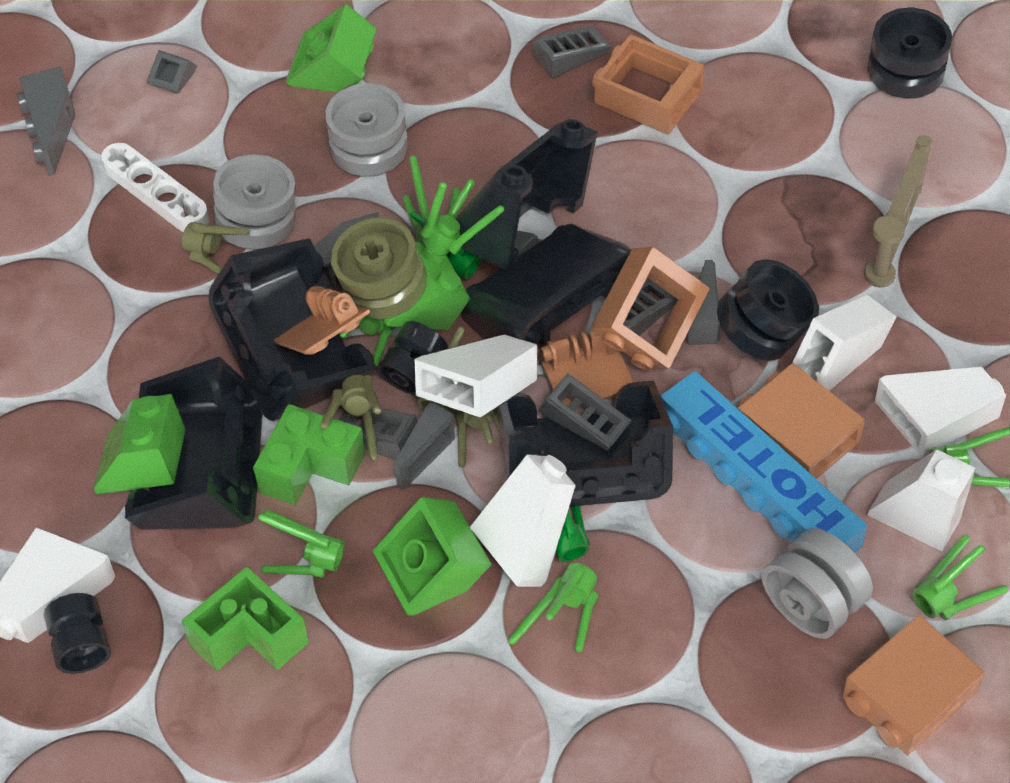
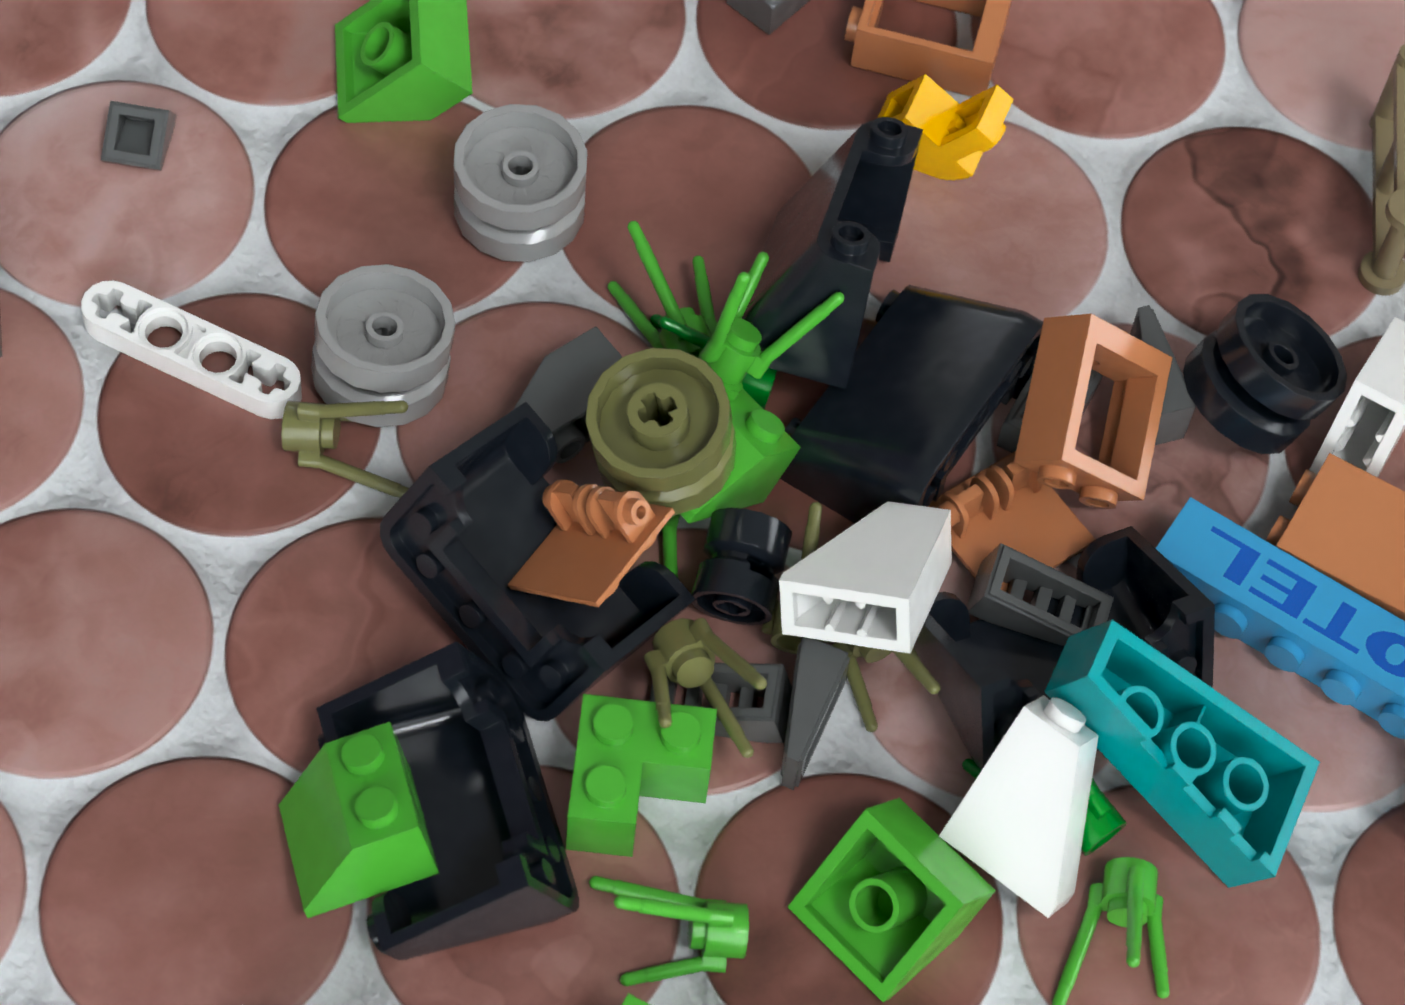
camera: 25 degrees left, 5 degrees up
(628, 146) = (952, 131): none -> yellow brick
(631, 507) = (1188, 751): none -> teal wedge

